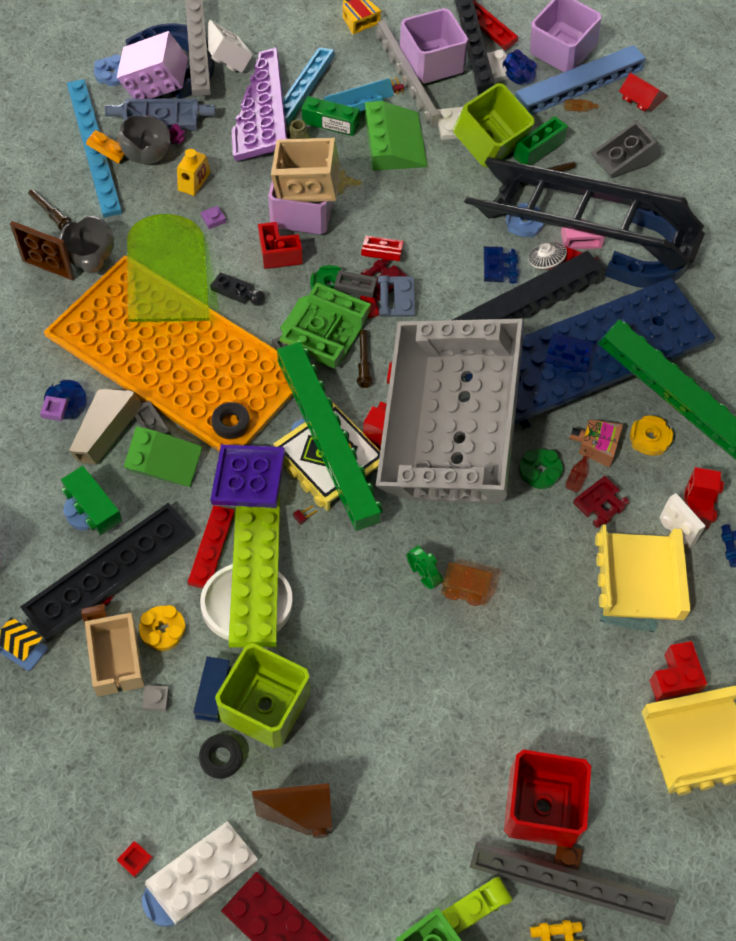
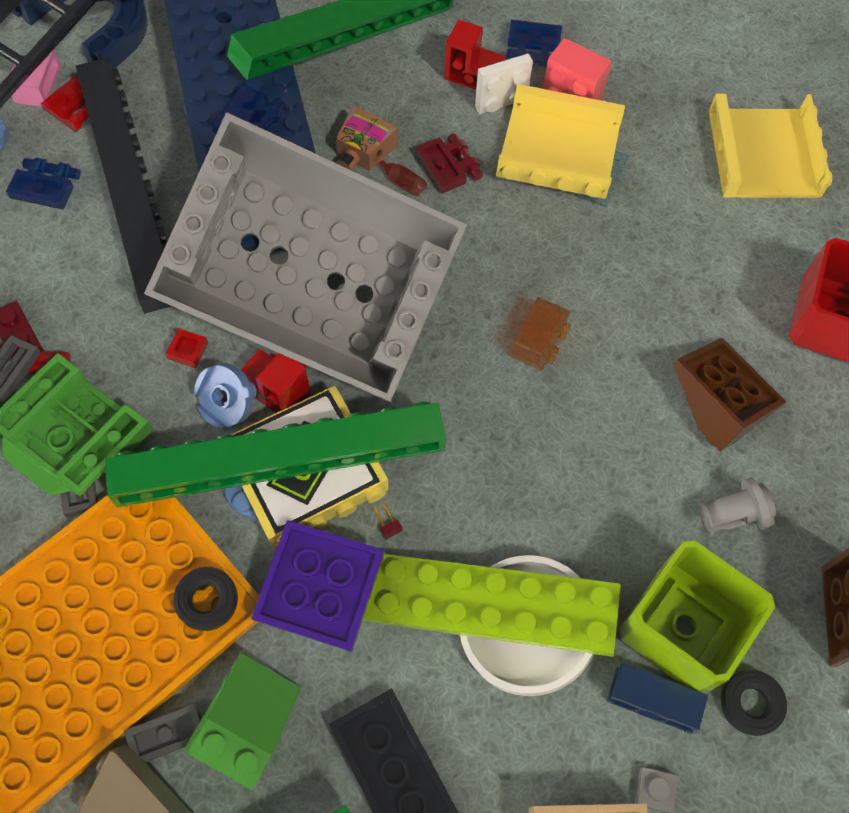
camera: 80 degrees left, 5 degrees up
(168, 616) = (529, 782): yellow plate -> none
(211, 546) = (417, 668): red plate -> none
(361, 402) = (238, 390): none -> medium blue plate
(361, 739) = (741, 508): none -> light grey piece
(364, 376) = (159, 391): dark brown pin -> none
(403, 296) = (53, 312): sand blue plate -> none
(425, 566) = (519, 373): green plate -> none
(453, 718) = (724, 393): none -> reddish brown slope
(547, 255) = (51, 123): dish -> none
(646, 445) = (373, 100): yellow plate -> none
(683, 673) = (691, 139): red brick -> none
(708, 573) = (576, 71): none -> coral brick

